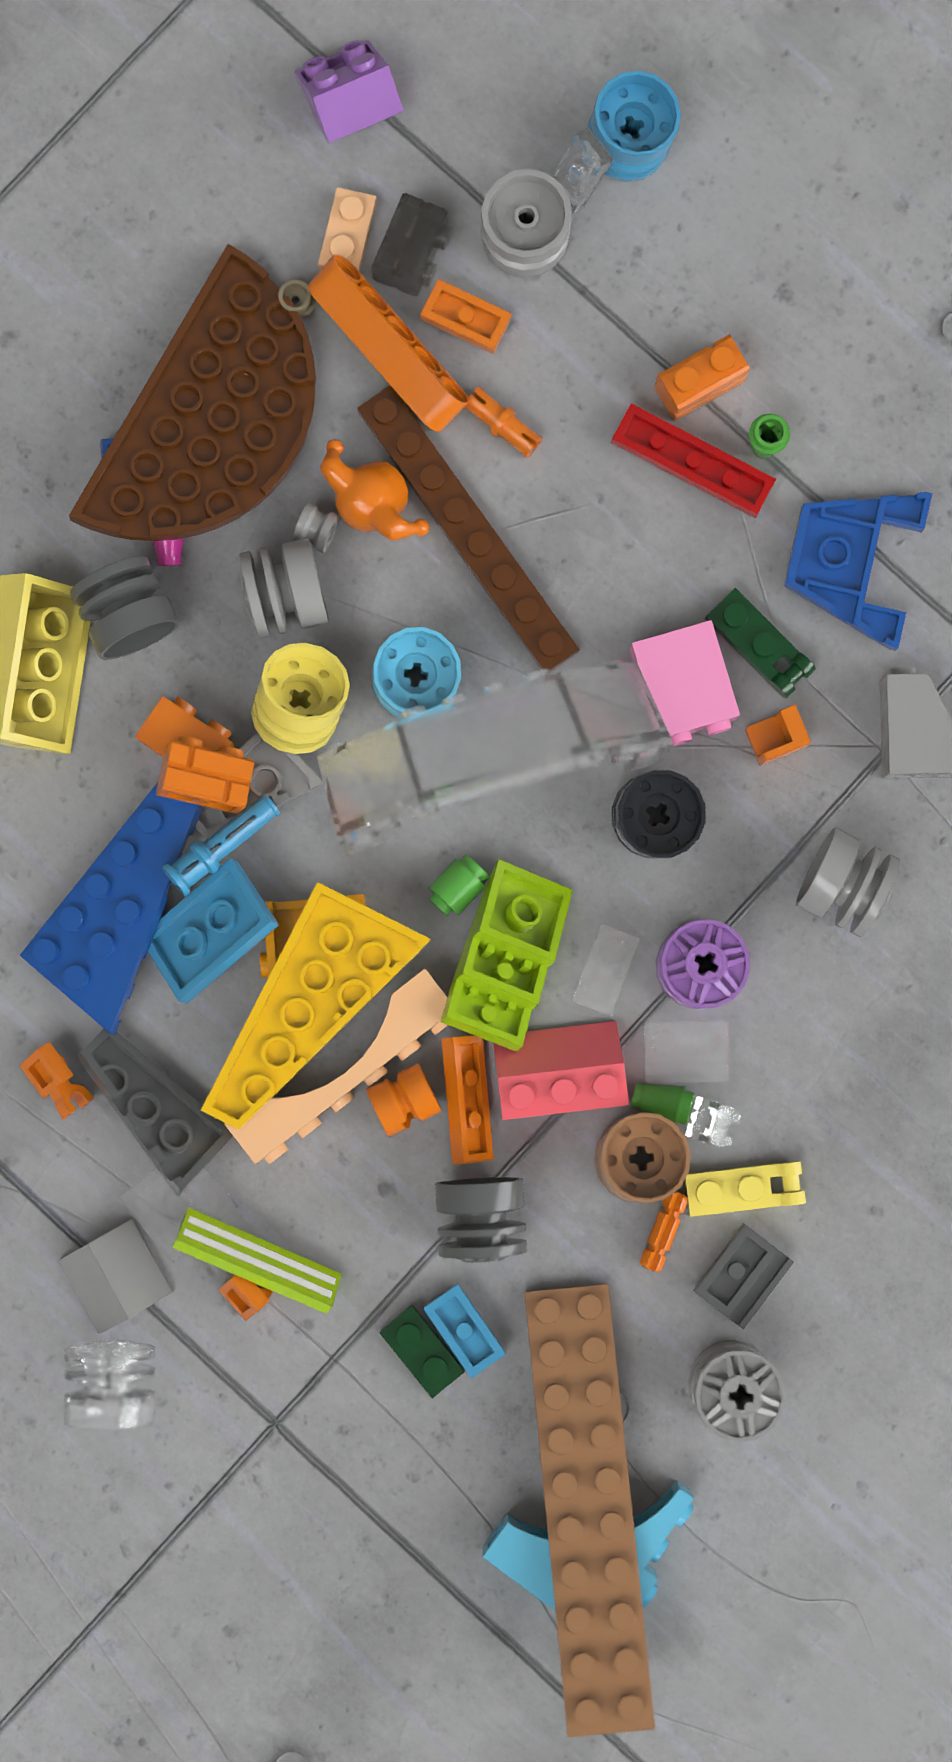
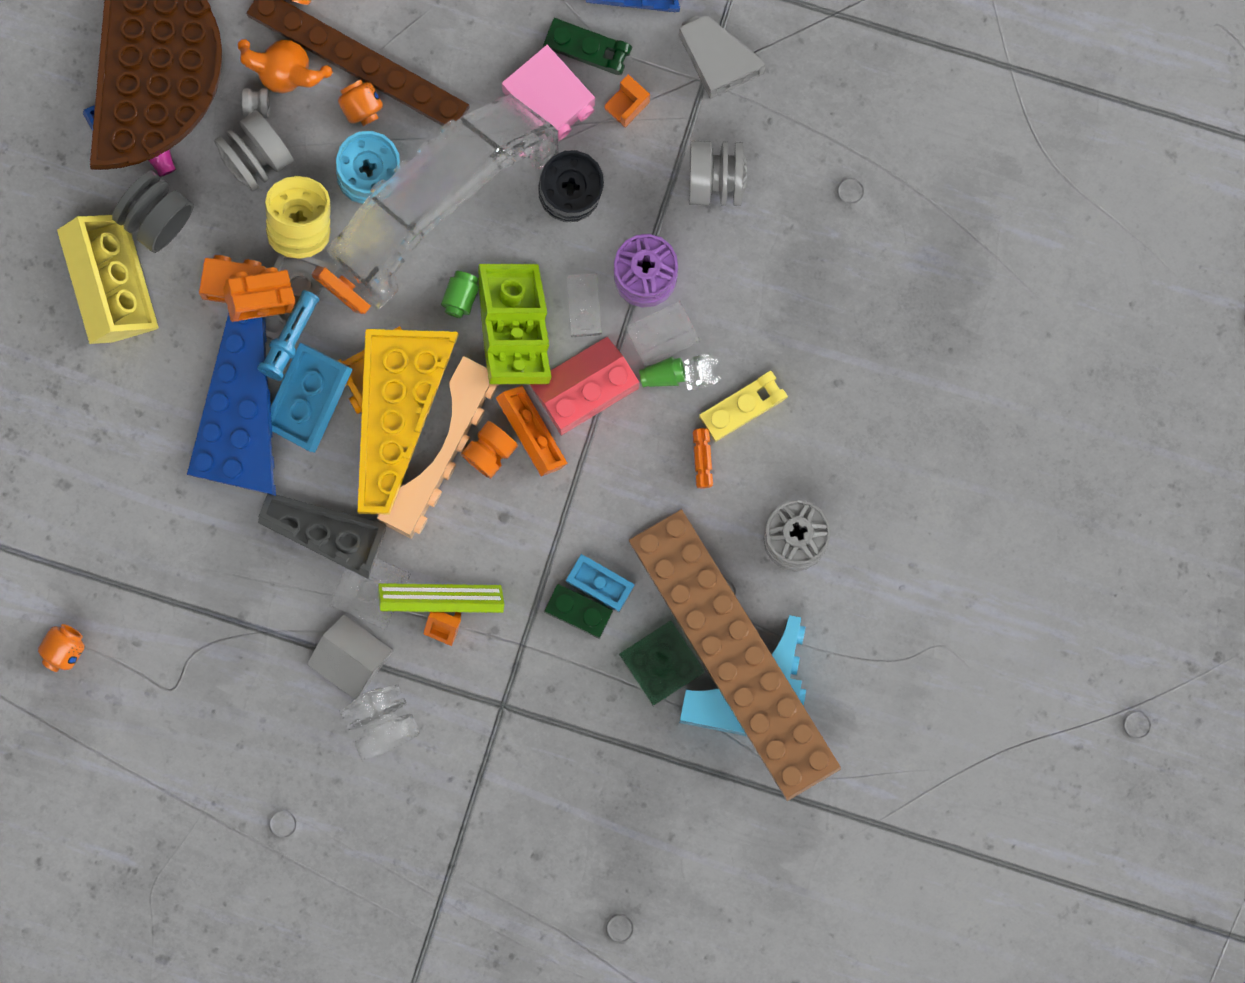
camera: 25 degrees left, 5 degrees down
(50, 1077) = (244, 544): orange plate -> none
(314, 813) = (341, 288): none -> orange plate
(445, 586) = (360, 103): none -> orange head
(481, 1218) = (577, 502): dark grey wheel -> none
(494, 1467) = (661, 663): none -> clear green plate
(667, 1158) = (668, 397): medium nougat wheel -> none
(743, 1276) = (768, 462): dark grey plate -> none

